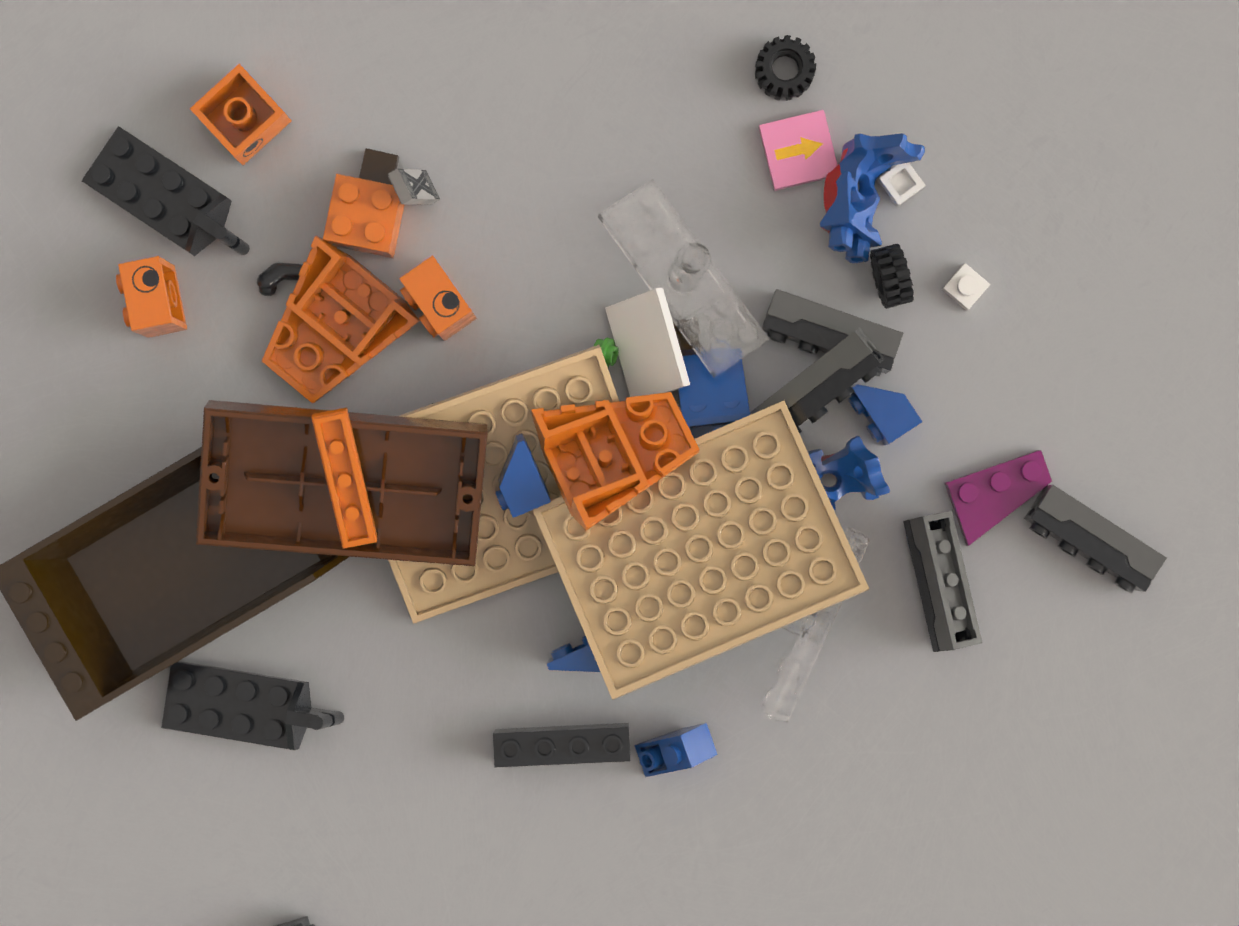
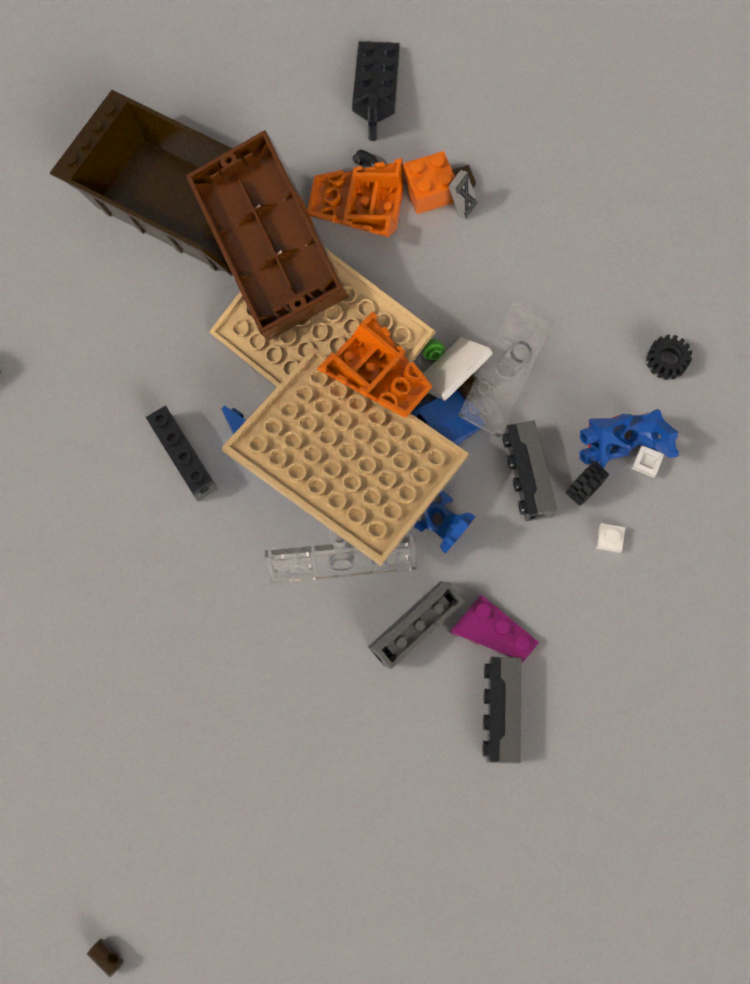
camera: 60 degrees right, 15 degrees down
(151, 297) = (315, 100): orange brick -> none
(240, 114) = (445, 92): orange brick -> none
(242, 706) = (109, 269): black hinge -> none
(344, 477) = (269, 227): orange tile -> none
(438, 299) = (406, 239): orange brick -> none
(521, 481) = (328, 331): blue slope -> none
(676, 750) = (215, 522): blue slope -> none
(798, 149) = (626, 391): bright pink tile -> none
(828, 379) = (498, 478): piece -> none
(886, 411) = (502, 531): blue slope -> none

